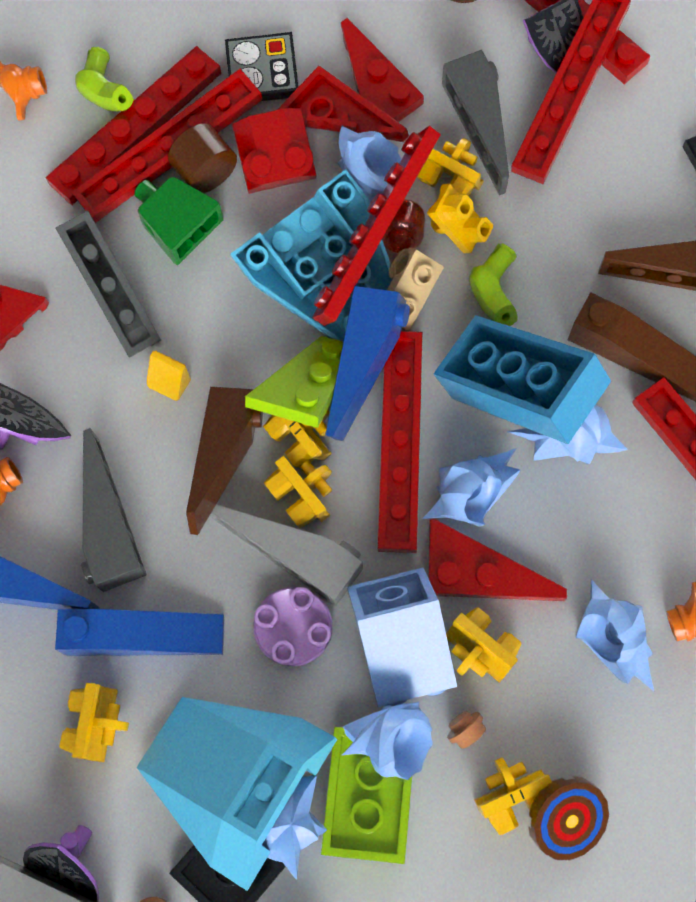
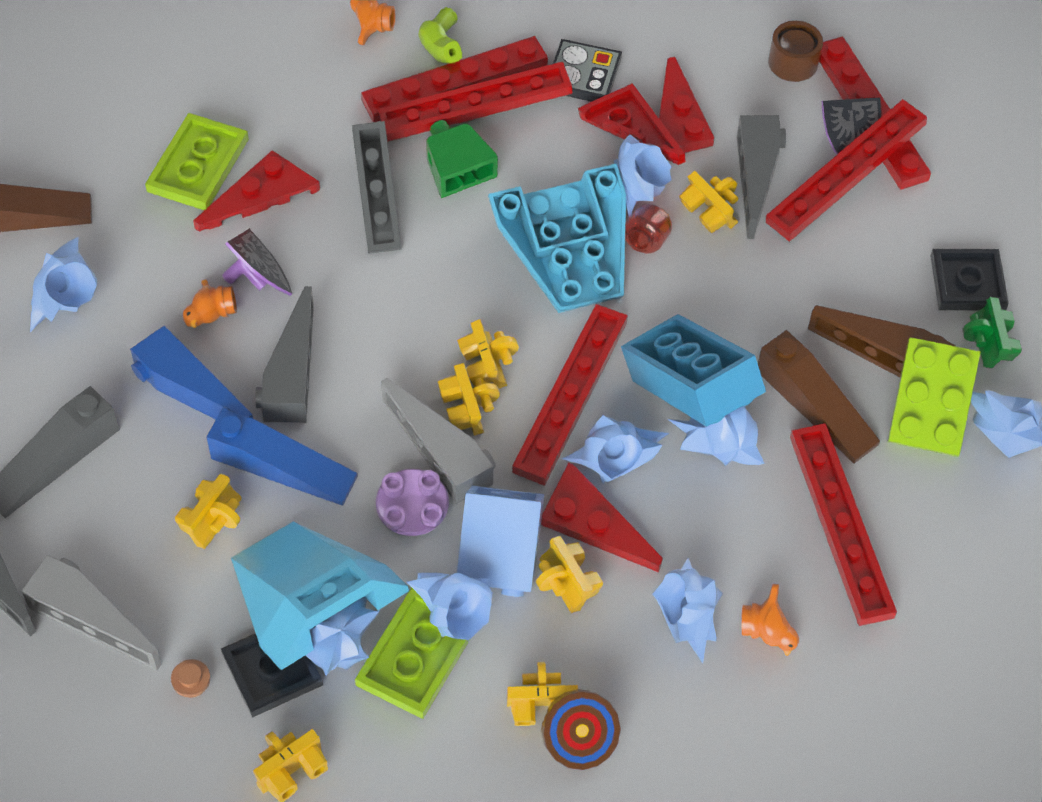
camera: 15 degrees right, 15 degrees down
(62, 864) = (137, 598): shield -> none
(167, 376) = (394, 274): yellow slope -> none
(202, 158) = (499, 119): reddish brown piece -> none
(223, 444) = (415, 338): reddish brown slope -> none
(274, 149) = (564, 134): red slope -> none
(302, 386) = (509, 316): lime wing -> none
(368, 236) = (609, 219): red plate -> none
(368, 341) = (572, 305): blue slope -> none
(414, 279) = (632, 276): tan plate -> none
(457, 219) = (697, 238): yellow hips -> none
(466, 729) = (524, 632): nougat plate -> none
(487, 287) = (702, 297): lime arm -> none

